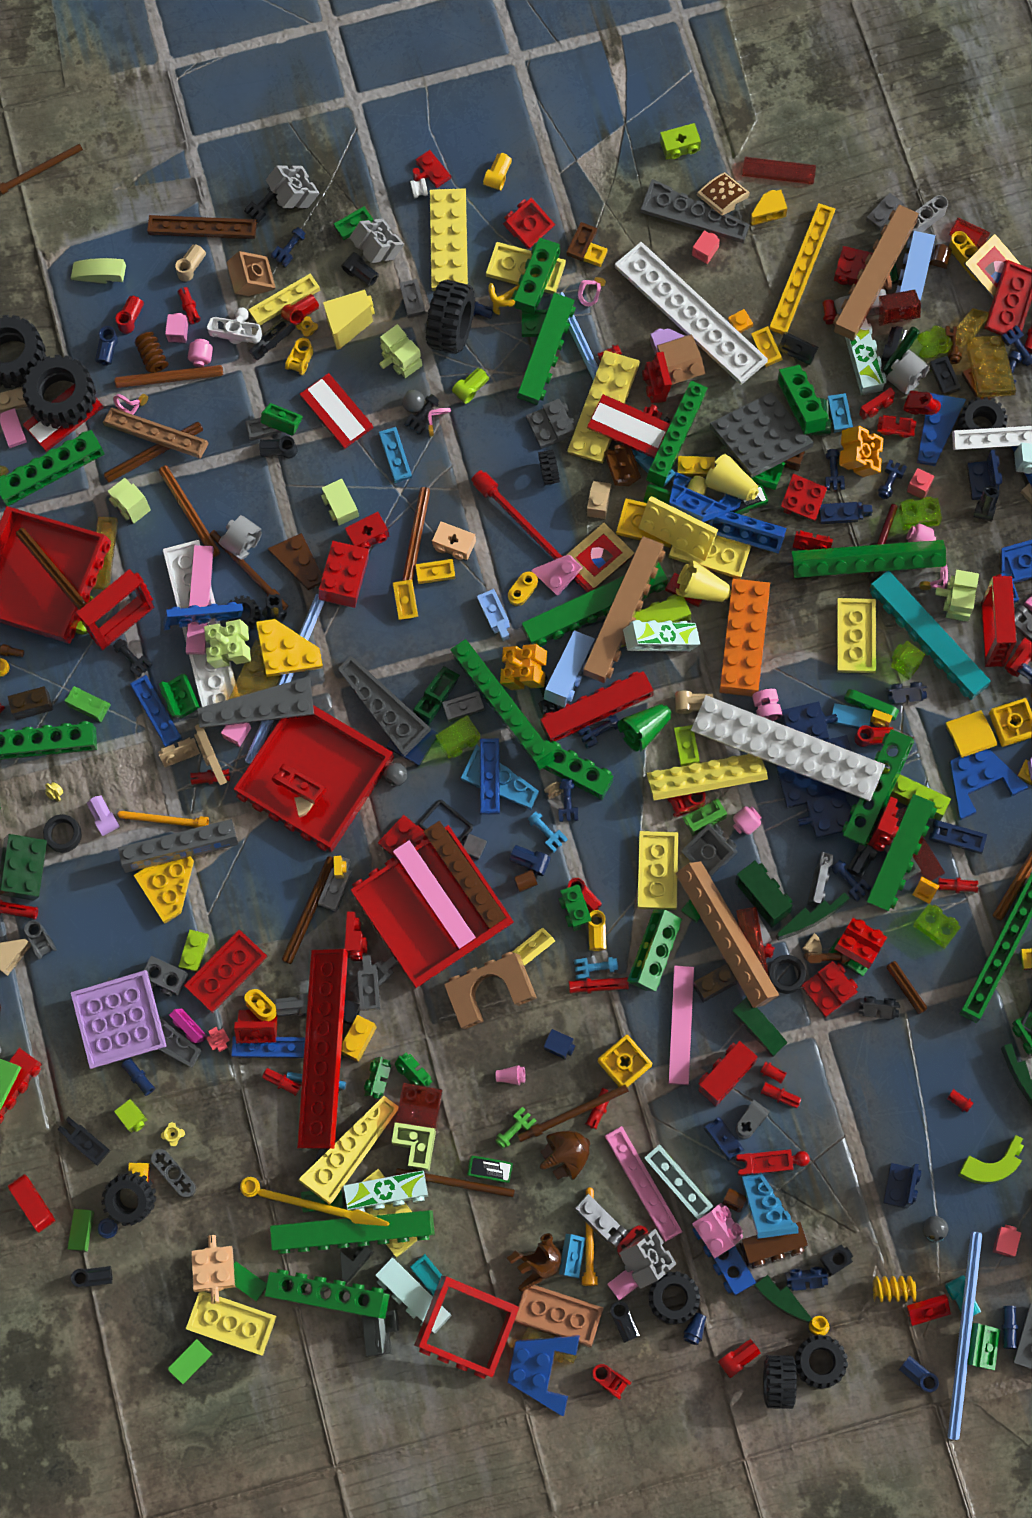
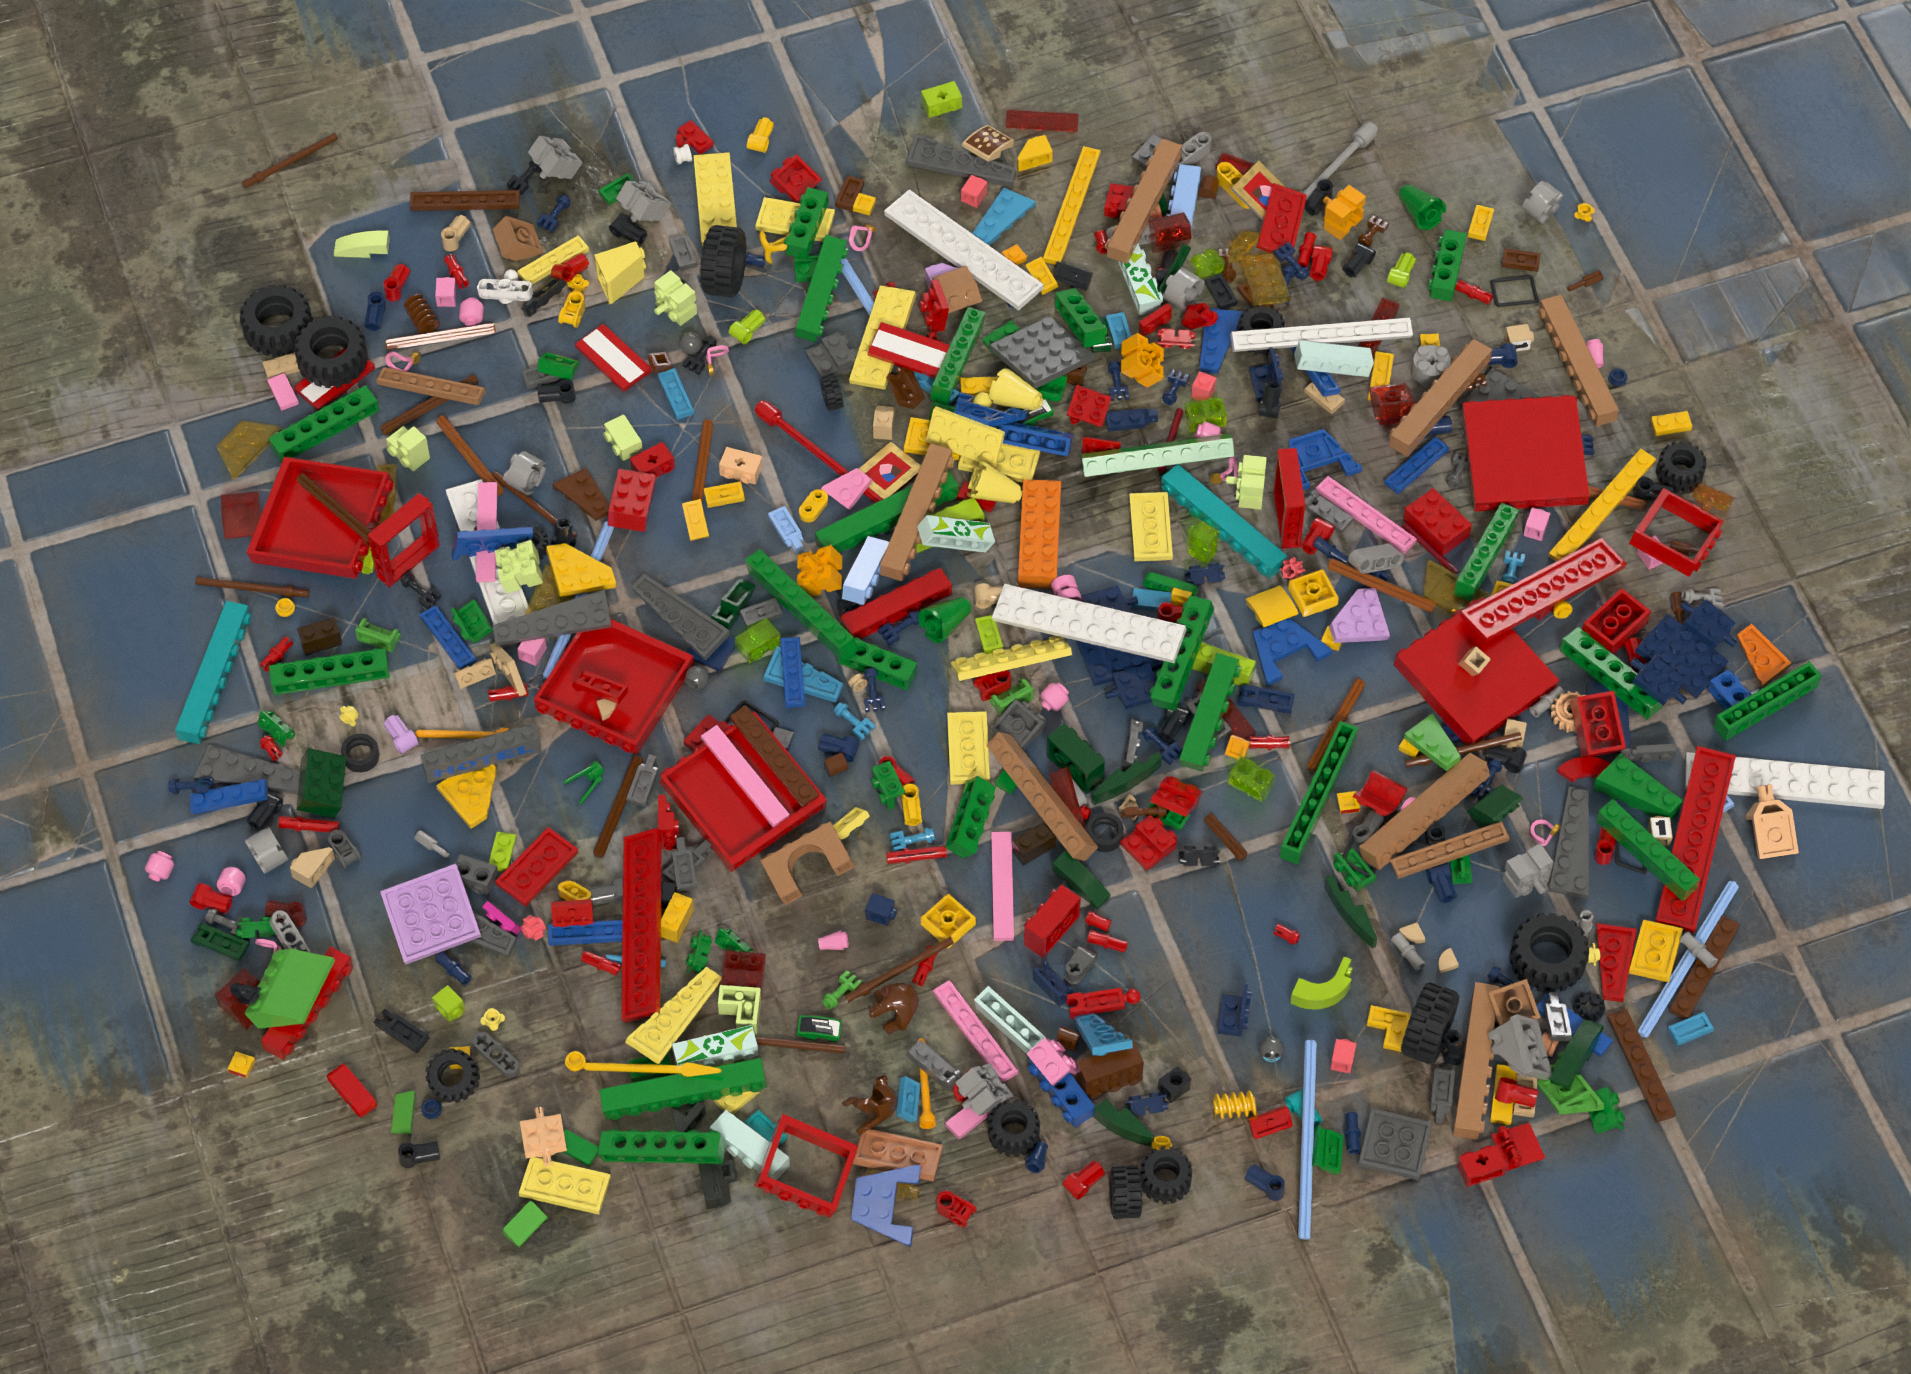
camera: 10 degrees left, 15 degrees down
(123, 936) = (430, 843): none -> light grey axle
(286, 870) = (591, 772): none -> green plant
(339, 867) = (647, 761): yellow plate -> none
(381, 420) = (659, 362): none -> reddish brown brick
(624, 1323) = (965, 1154): black piece -> none
(723, 408) = (1004, 331): none -> green plate
(730, 276) = (1002, 214): none -> dark azure wing
(886, 827) = (1191, 687): red plate -> none
(995, 694) = (1292, 569): none -> coral gear

